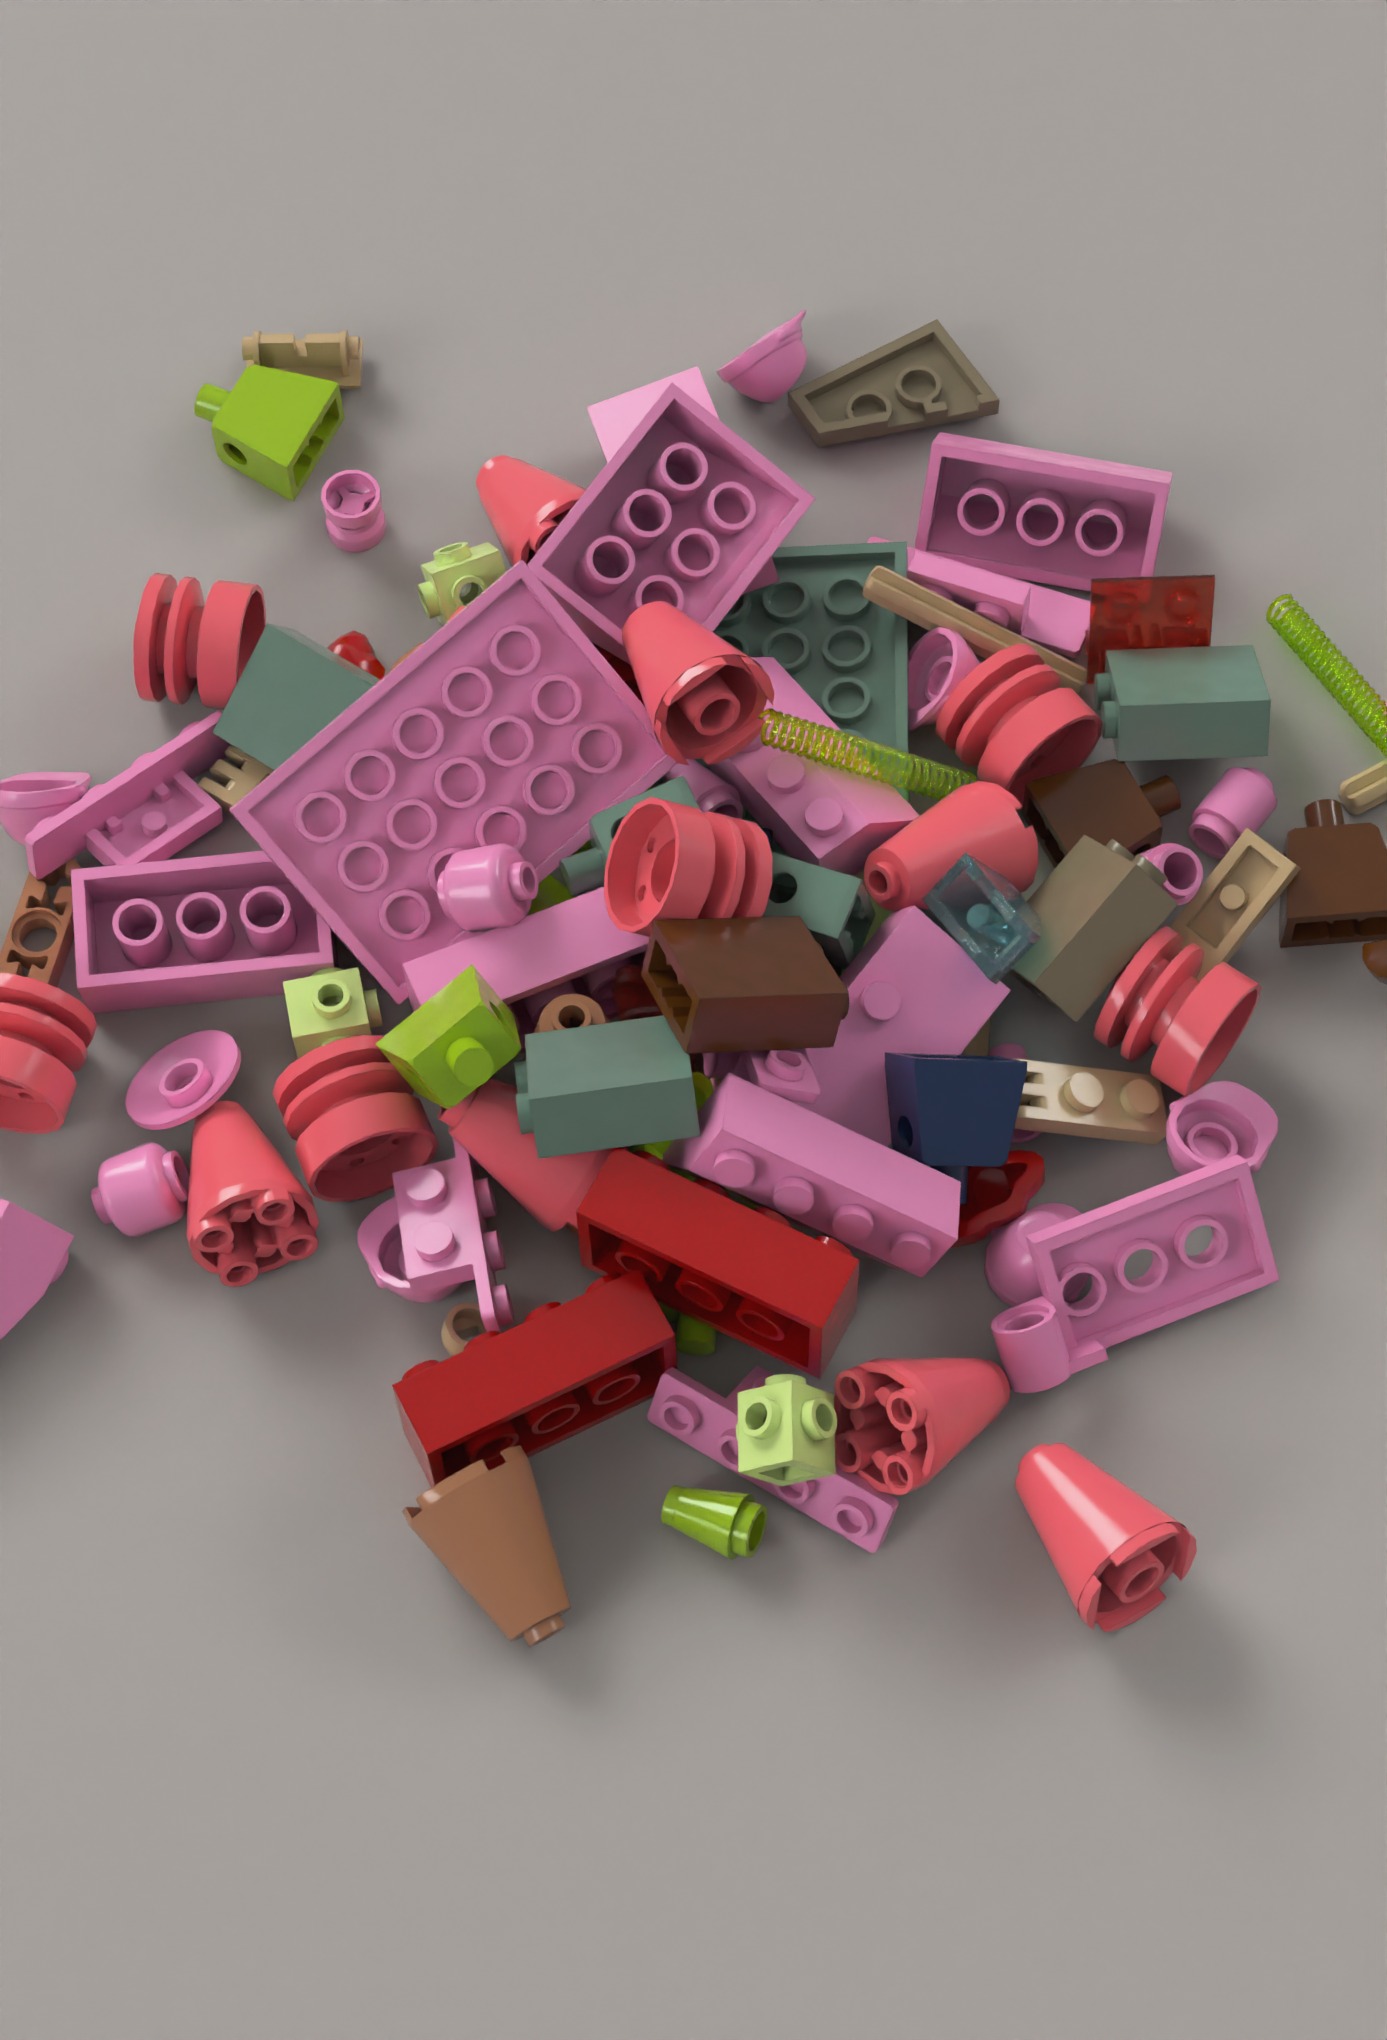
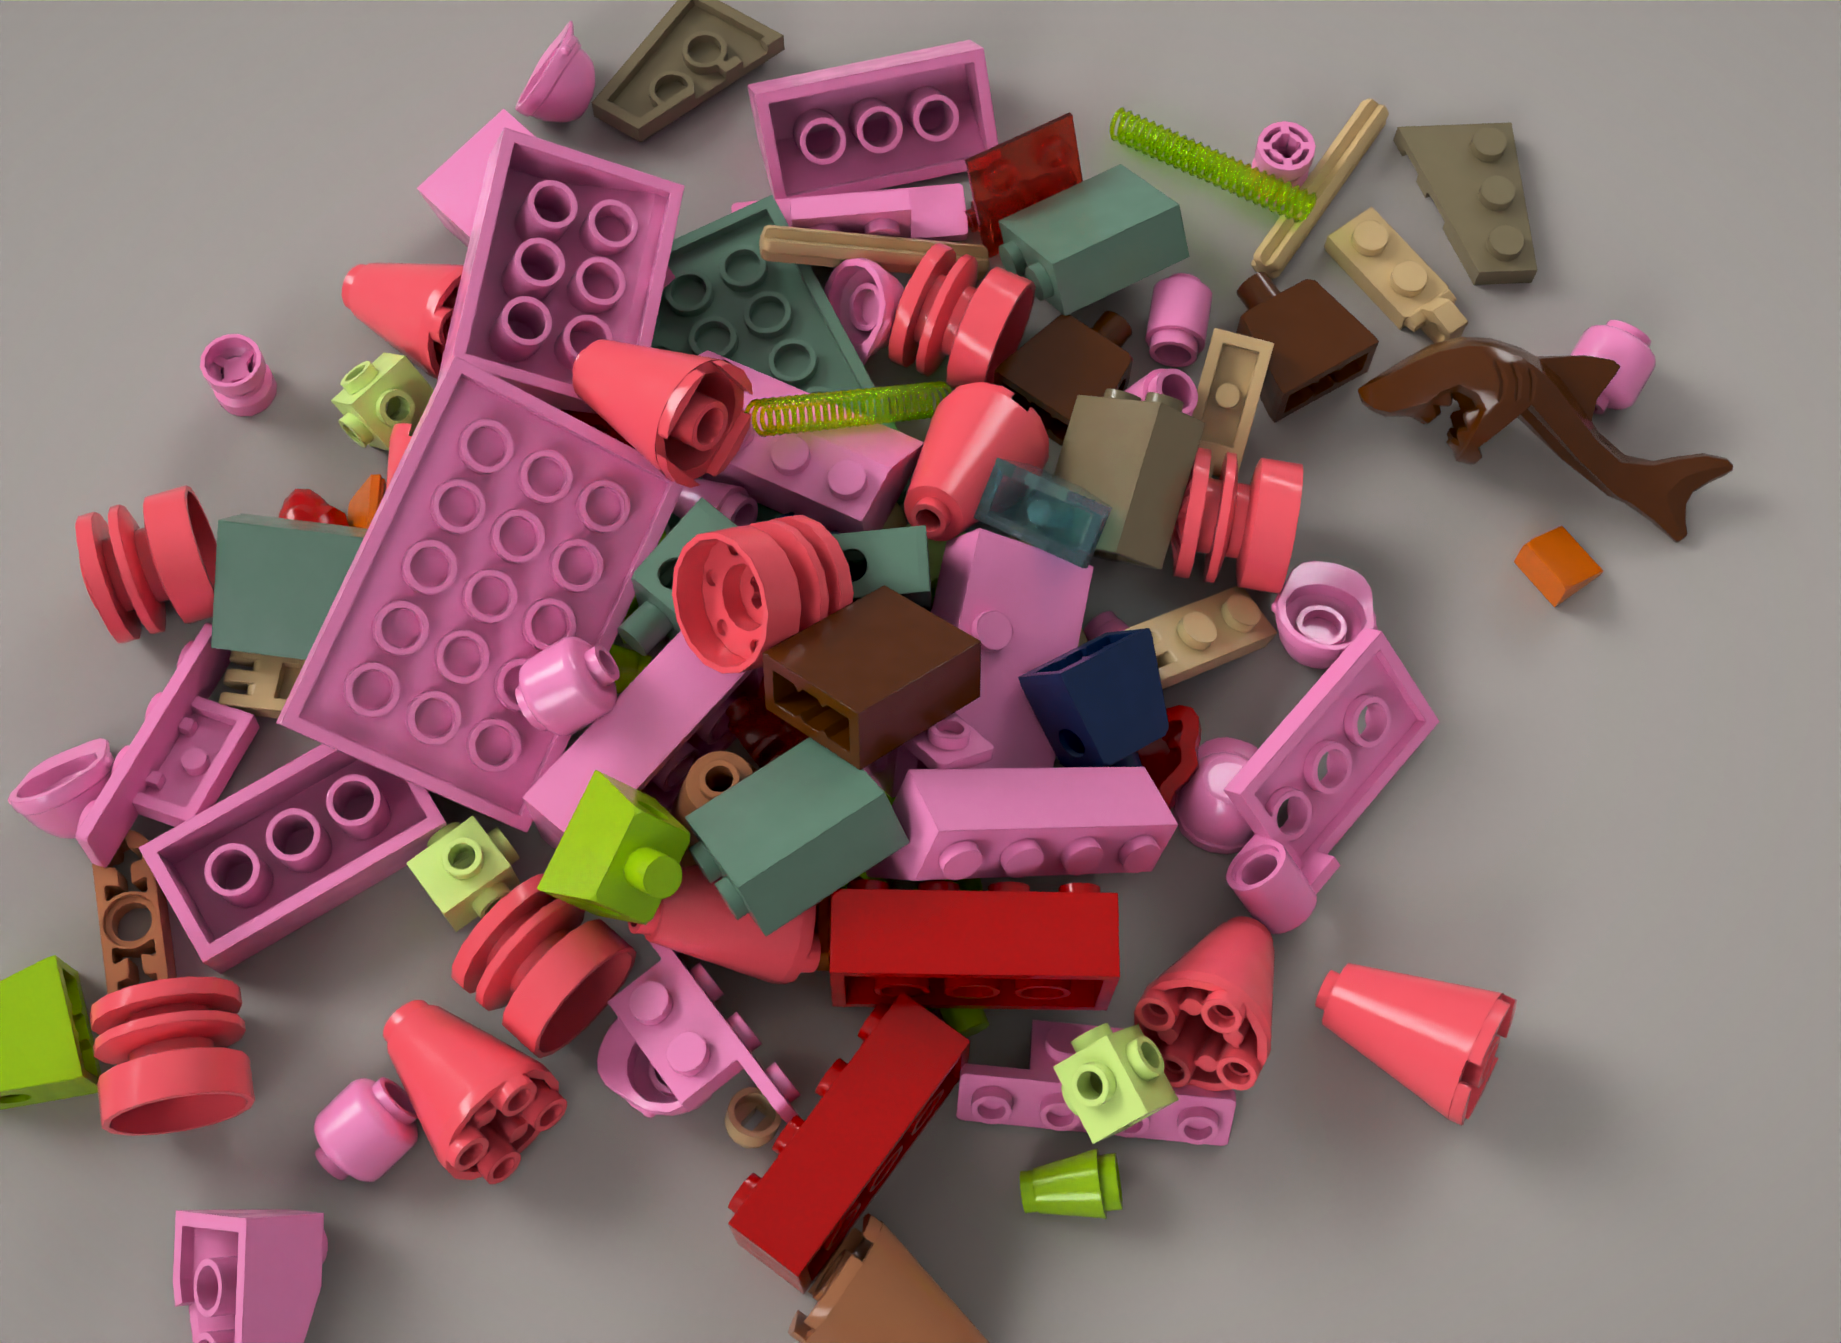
camera: 30 degrees left, 5 degrees up
(183, 1079) = (352, 1001): bright pink dish -> none
(273, 425) = (117, 325): lime torso -> none
(318, 355) = (119, 255): tan hinge -> none

